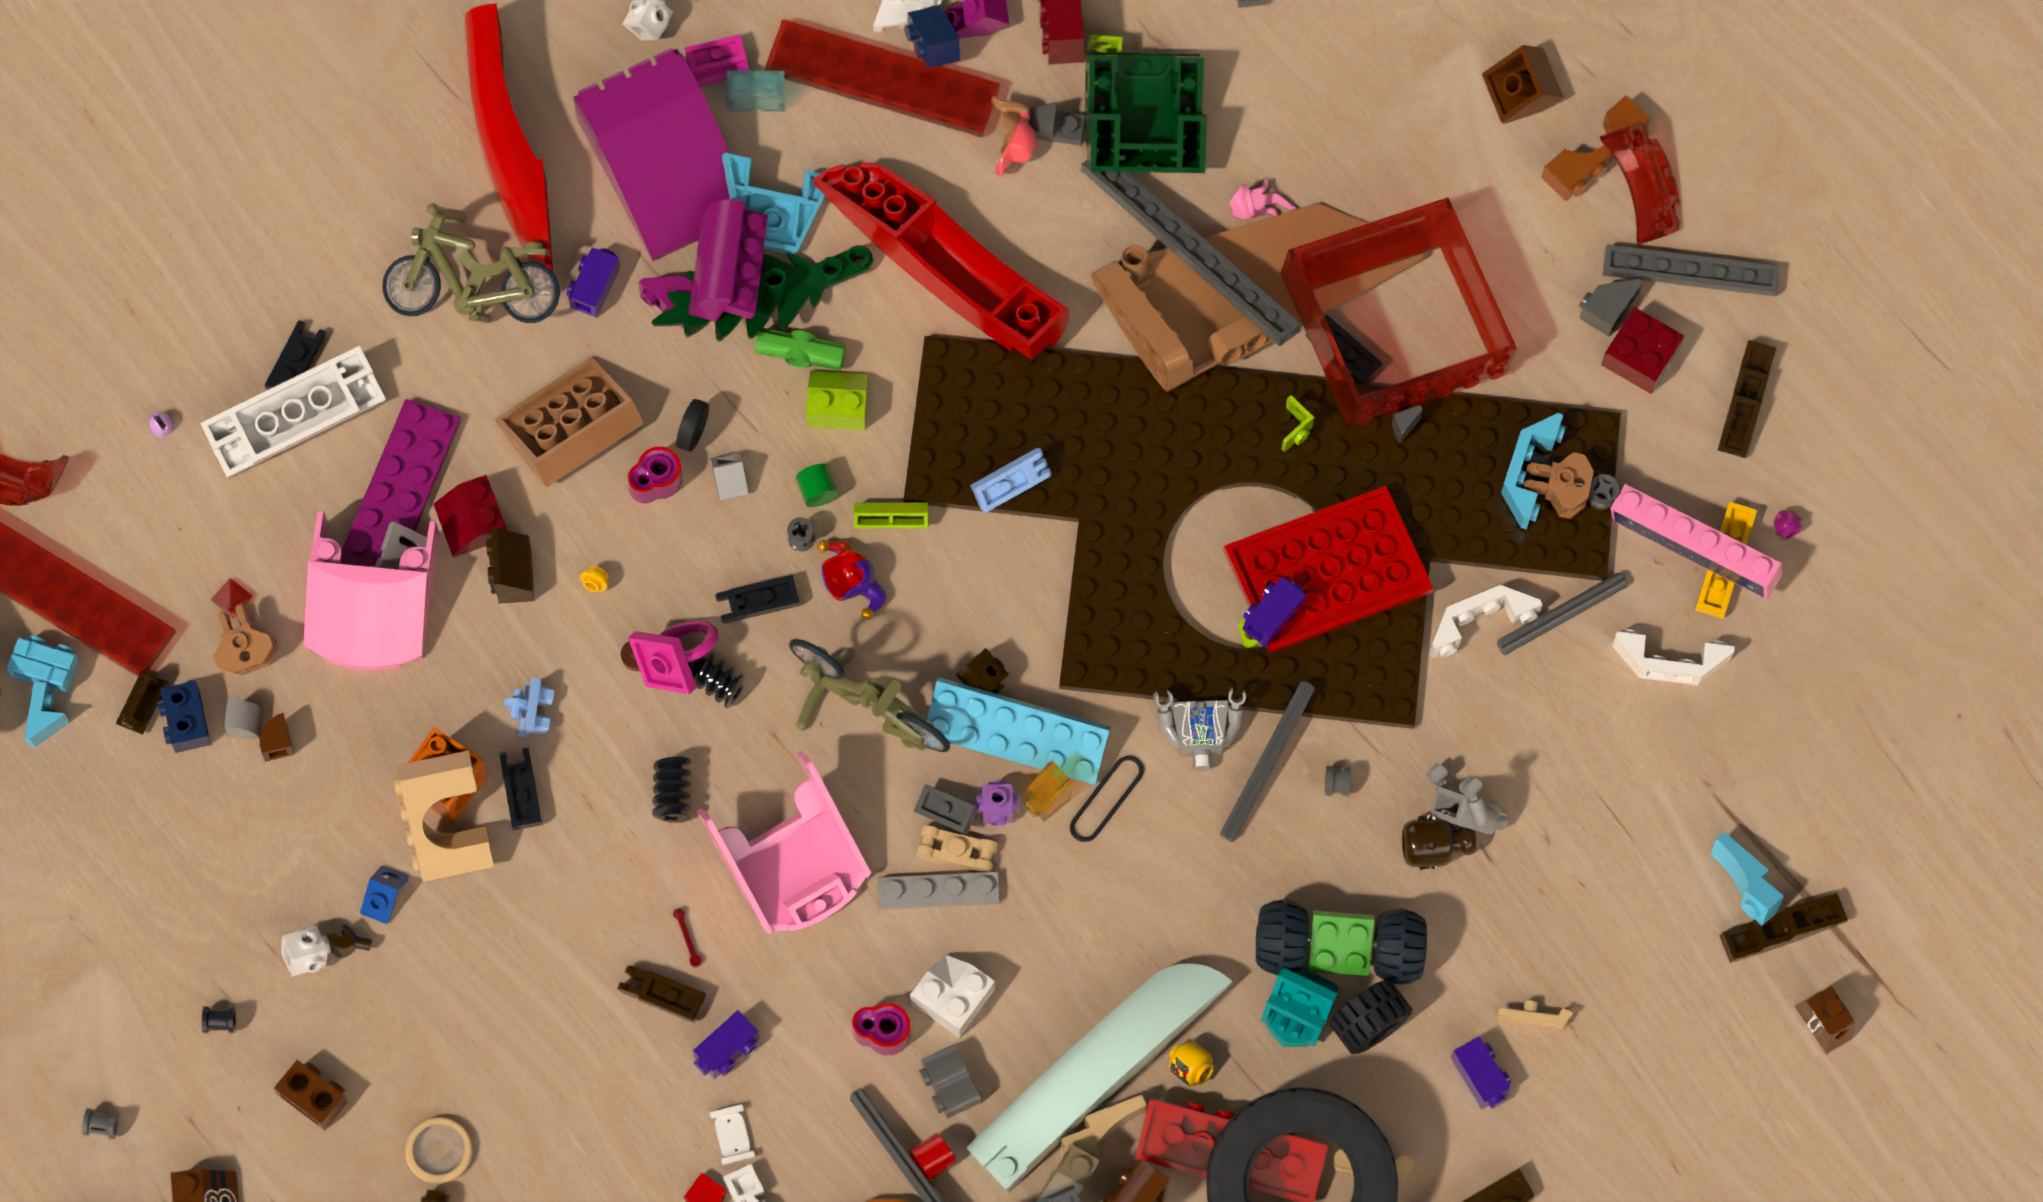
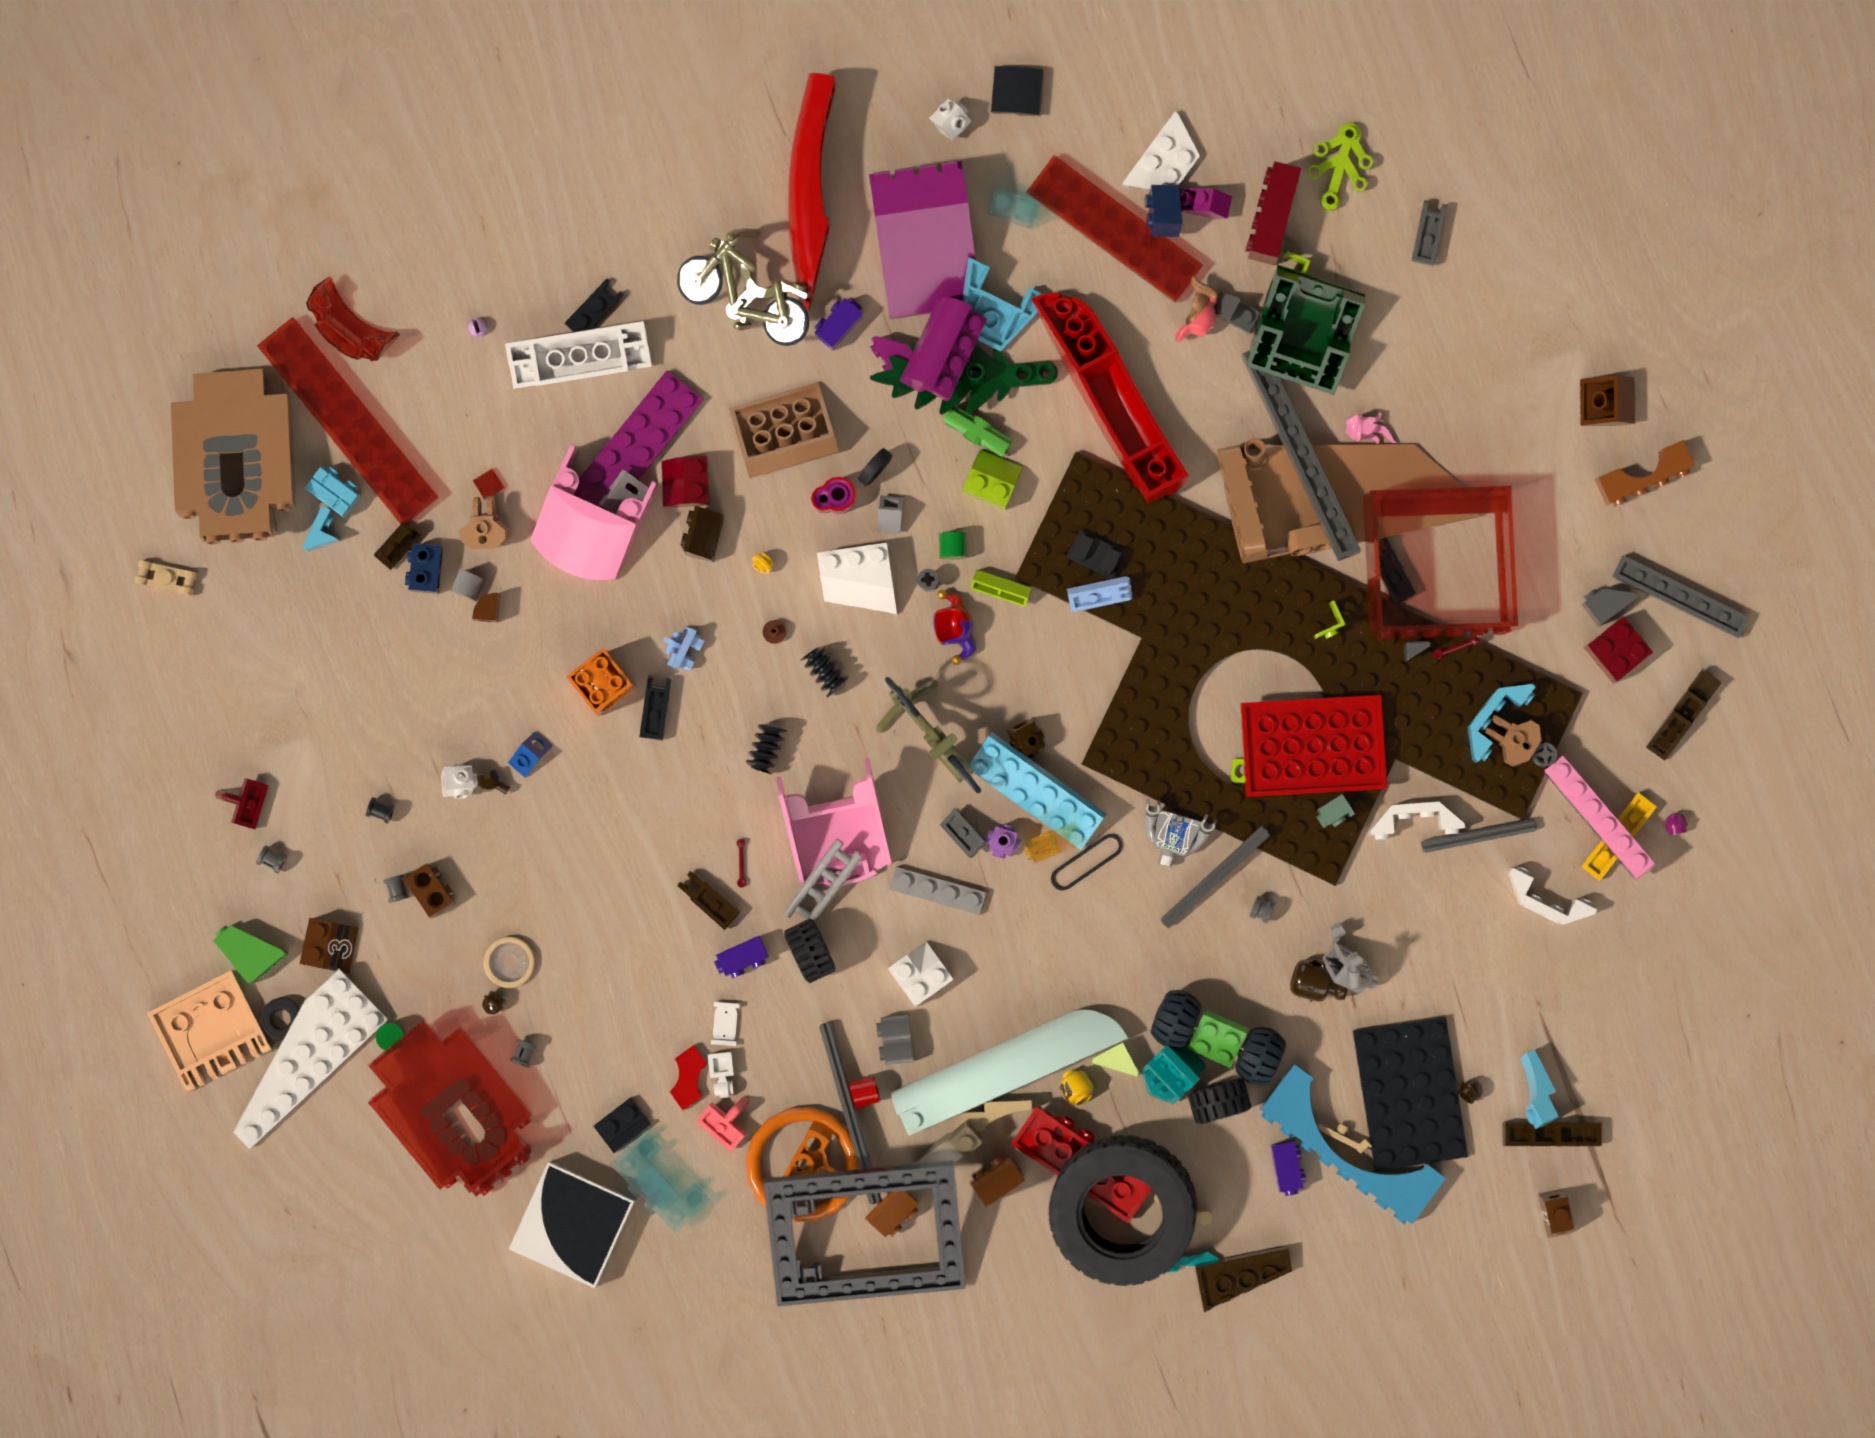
camera: 25 degrees right, 15 degrees up
(51, 1065) = (248, 803): none -> dark red plate
(268, 1107) = (396, 888): none -> dark grey bush
(438, 852) = (580, 740): tan arch -> none
(663, 659) = (792, 651): dark pink tile -> none
(714, 58) = (992, 171): dark pink plate -> none
(714, 556) = (858, 577): none -> white wedge
(759, 599) = (880, 620): black hinge -> none
(802, 941) = (821, 869): none -> light grey bar
(807, 1005) = (809, 950): none -> black tyre
(882, 1028) = (861, 983): magenta piece -> none
(956, 849) = (961, 864): tan plate -> none
(990, 440) = (1096, 554): none -> black piece
(1228, 1014) = (1117, 1059): none -> yellowish green slope
(1274, 611) = (1258, 770): dark purple brick -> none
(1382, 635) = (1334, 812): none -> sand green brick
(1435, 421) = (1438, 653): none -> dark red hinge
(1596, 939) = (1410, 1094): none -> black plate
(1626, 1057) = (1402, 1192): none -> dark azure arch
(1648, 179) = (1676, 516): clear red windscreen -> none
(1667, 910) = (1471, 1091): none -> dark brown plate

